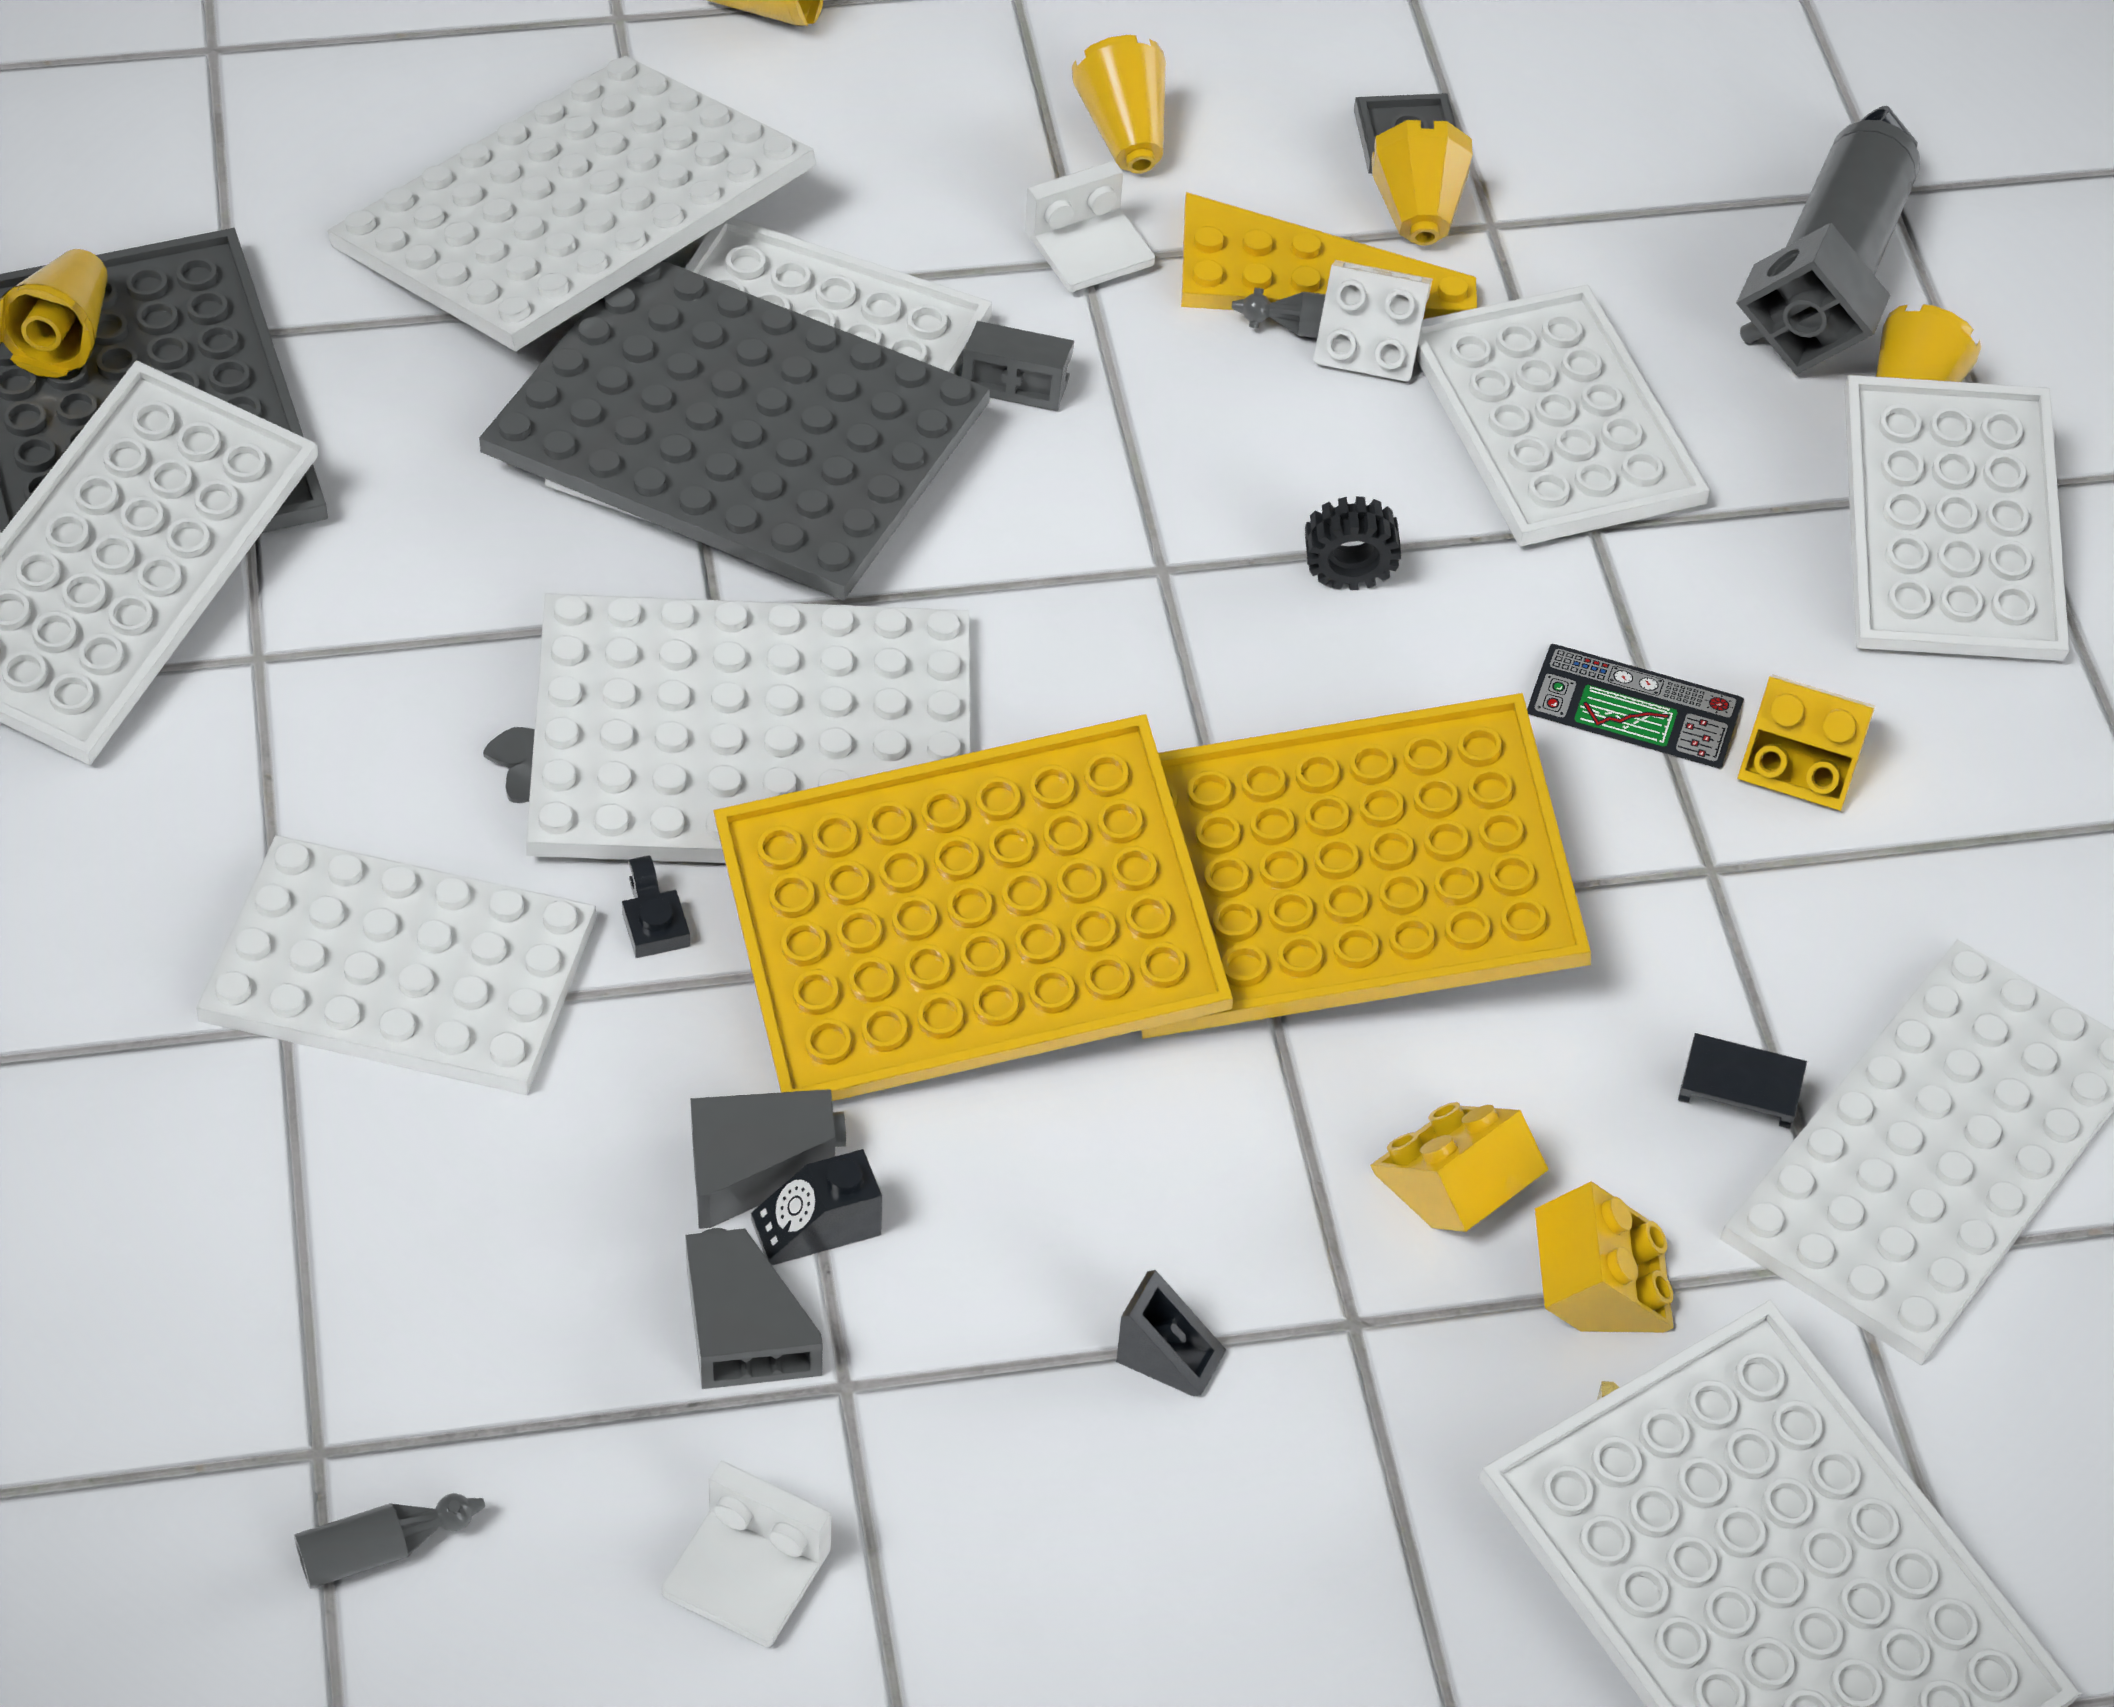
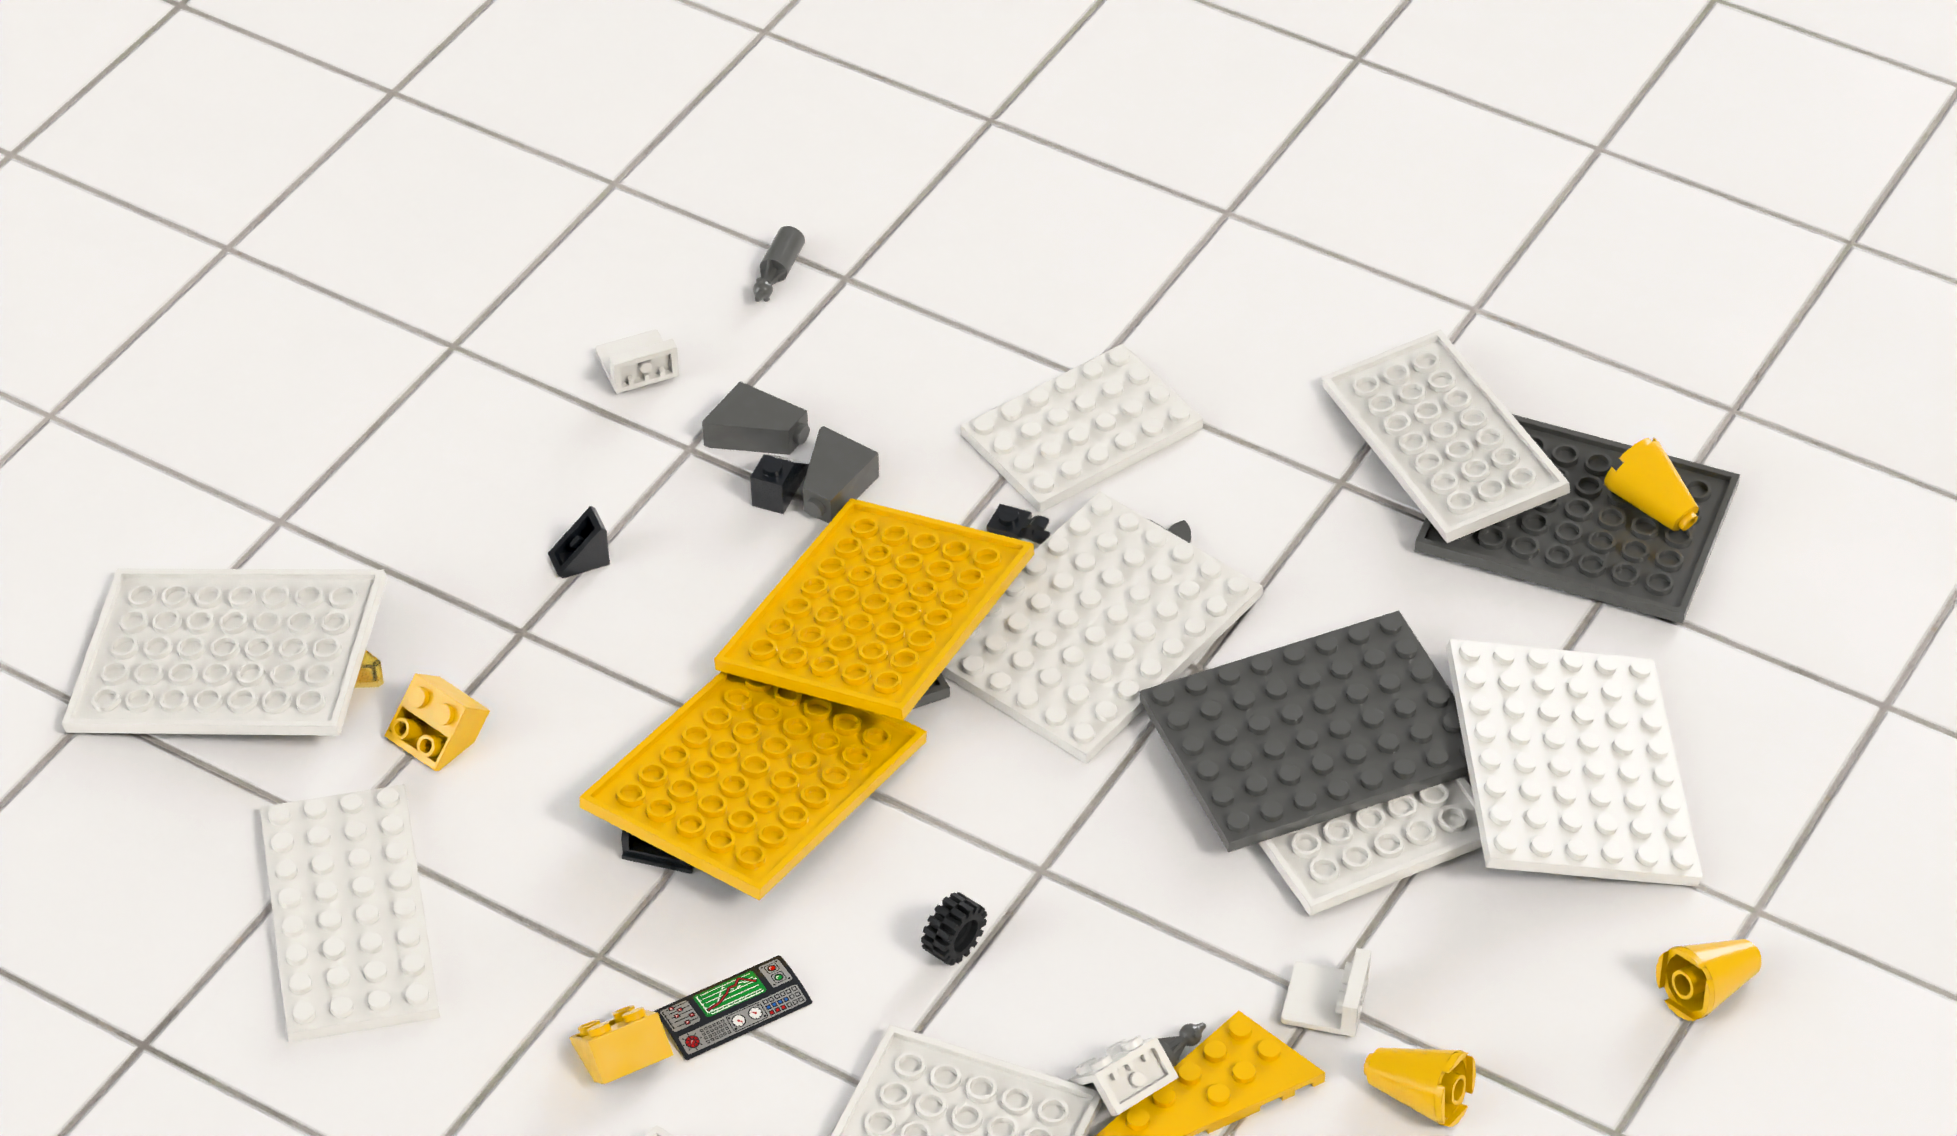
camera: 135 degrees right, 5 degrees down
(1018, 364) = (1249, 888): dark grey hinge -> none
(1461, 1164) = (546, 707): yellow slope -> none
(1743, 1077) = (465, 849): black hinge -> none

